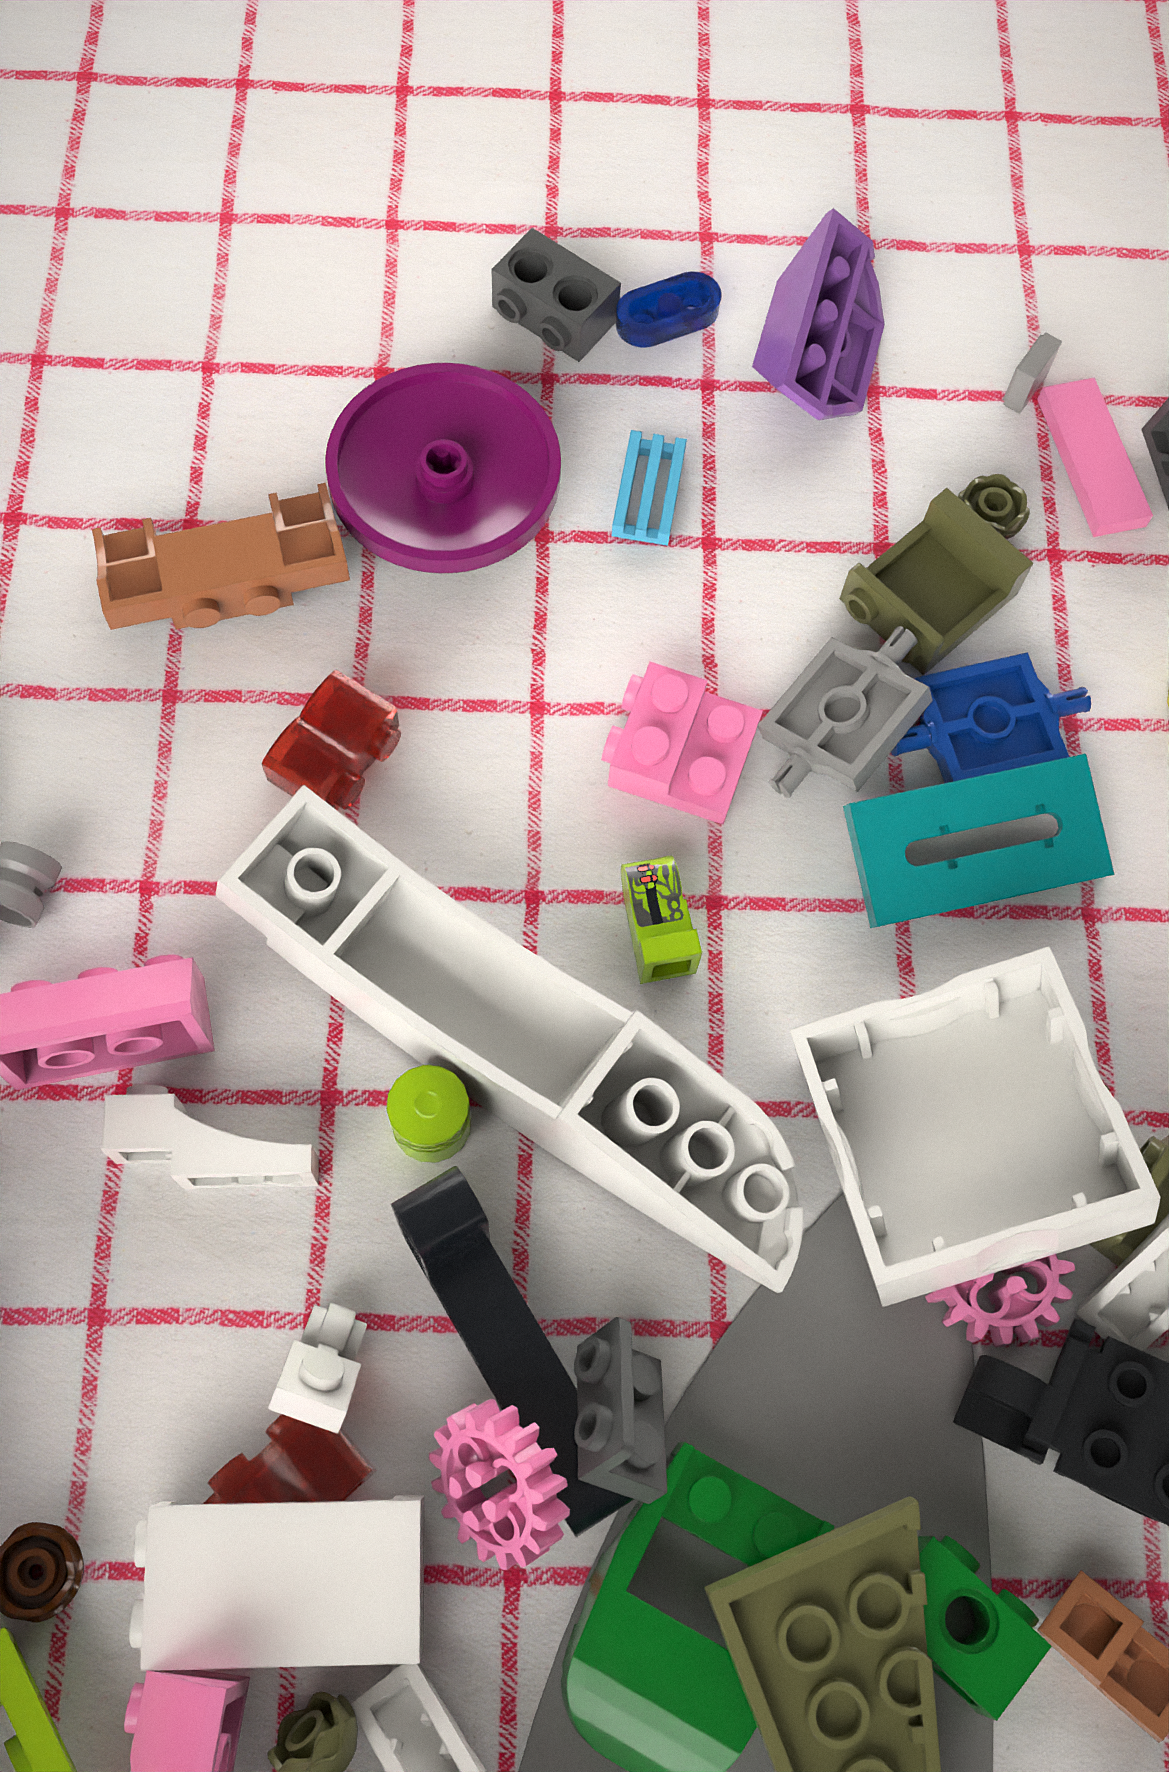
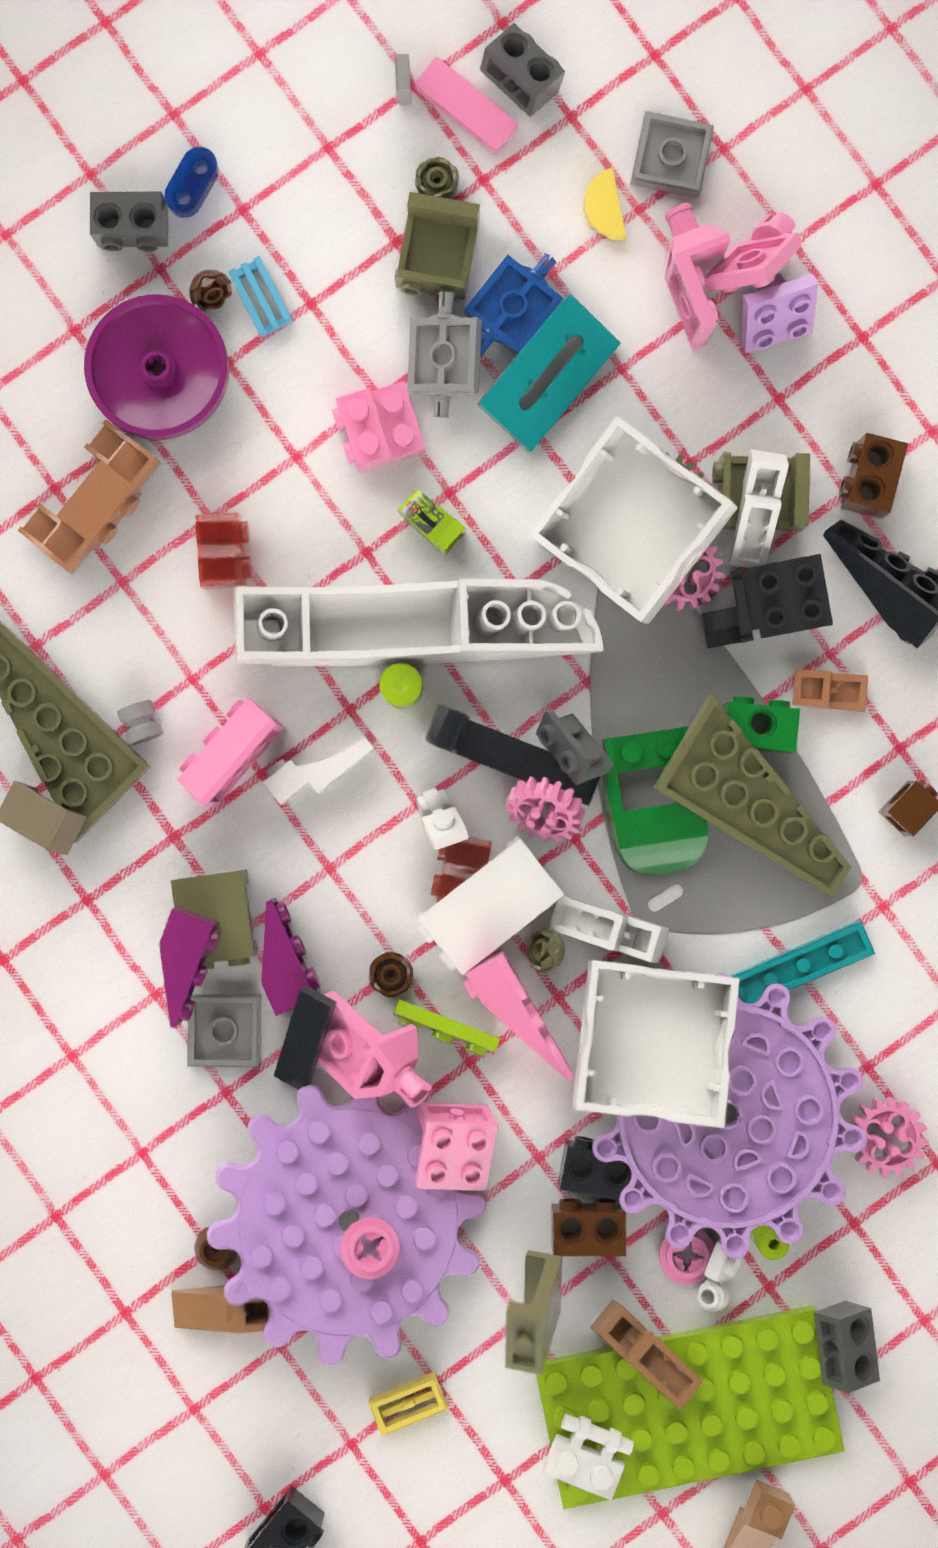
camera: 30 degrees left, 20 degrees up
(590, 448) = (210, 289): none -> reddish brown plate
(824, 322) = (280, 135): medium lavender wedge -> none

